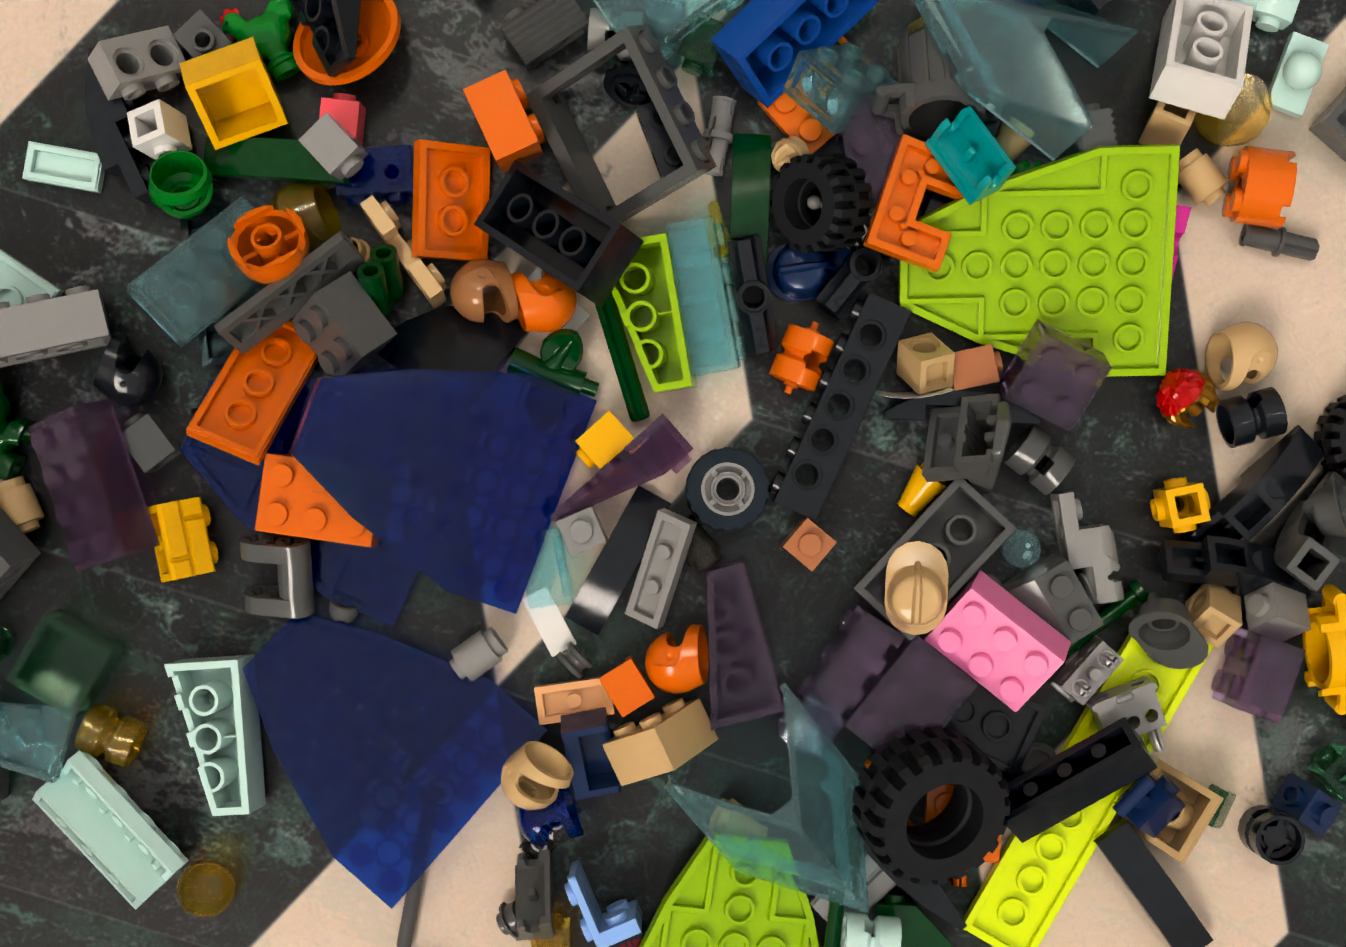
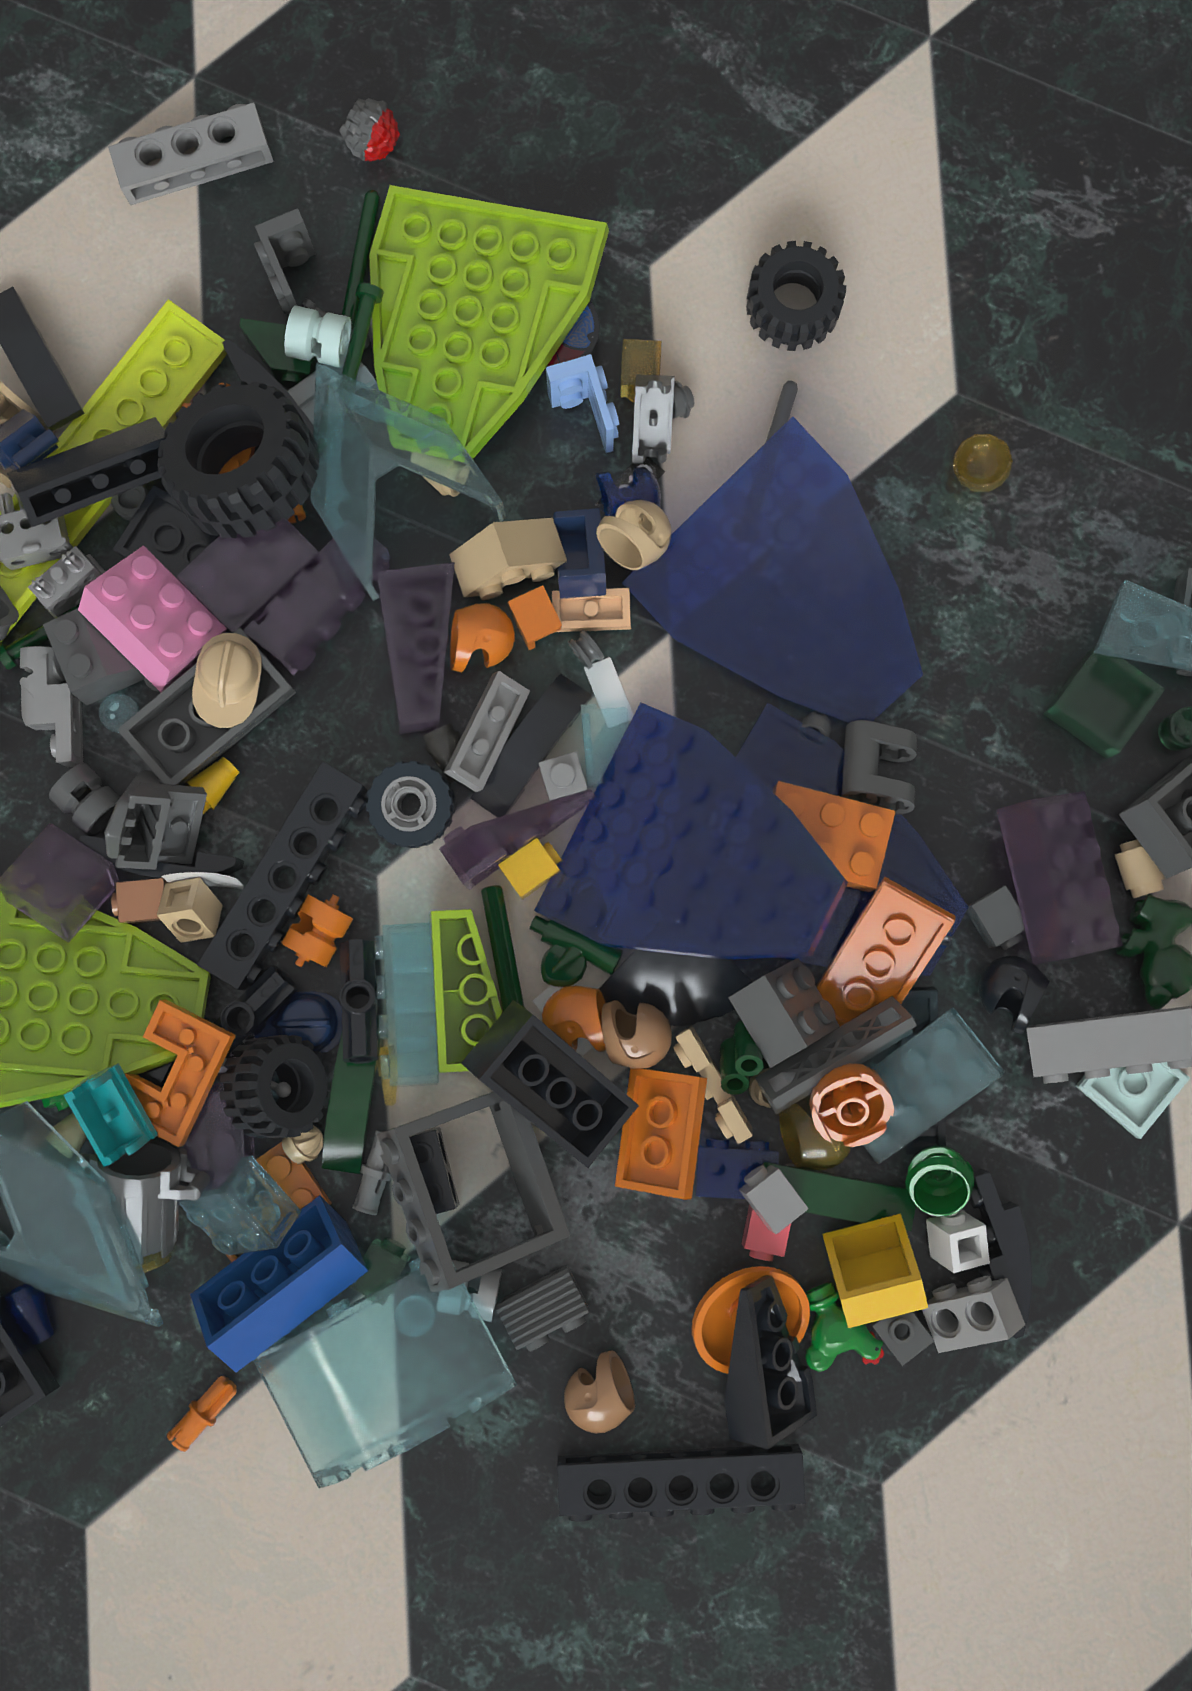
camera: 175 degrees left, 5 degrees down
(63, 167) = (1063, 1216): light aqua tile -> none
(108, 734) = (1066, 625): clear yellow wheel -> none
(110, 829) = (1073, 530): light aqua brick -> none
(183, 539) = (972, 814): yellow brick -> none
(222, 730) = (950, 618): light aqua wedge -> none
(478, 654) = (684, 666): light grey brick -> none
(501, 114) = (594, 1209): orange brick -> none
(618, 82) = (473, 1237): black gear -> none
(808, 543) = (334, 740): nougat brick -> none

